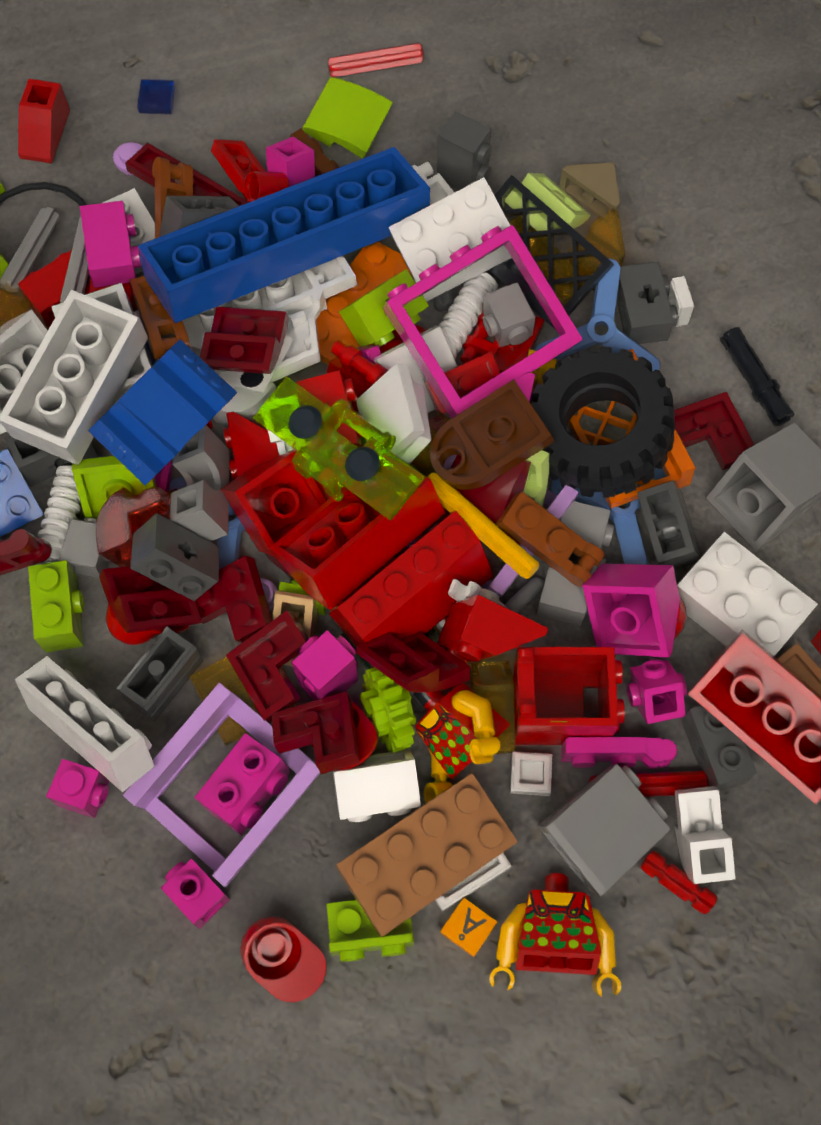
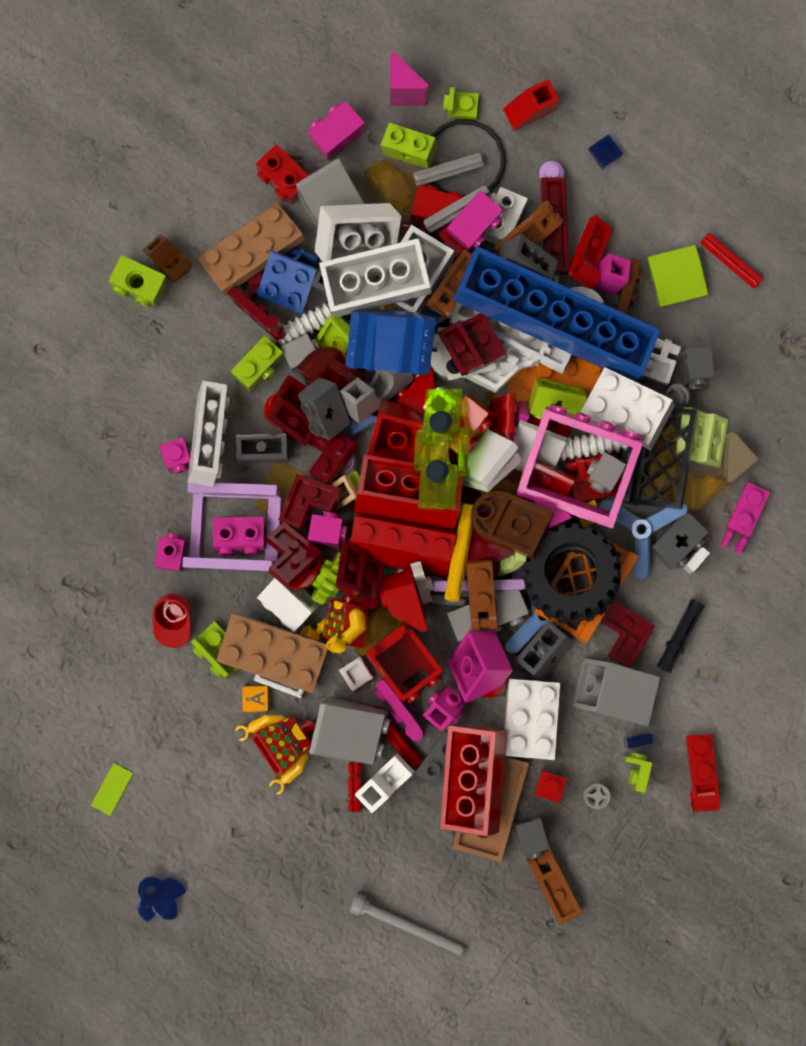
camera: 50 degrees right, 15 degrees up
(665, 226) = (745, 515): none -> dark pink hinge

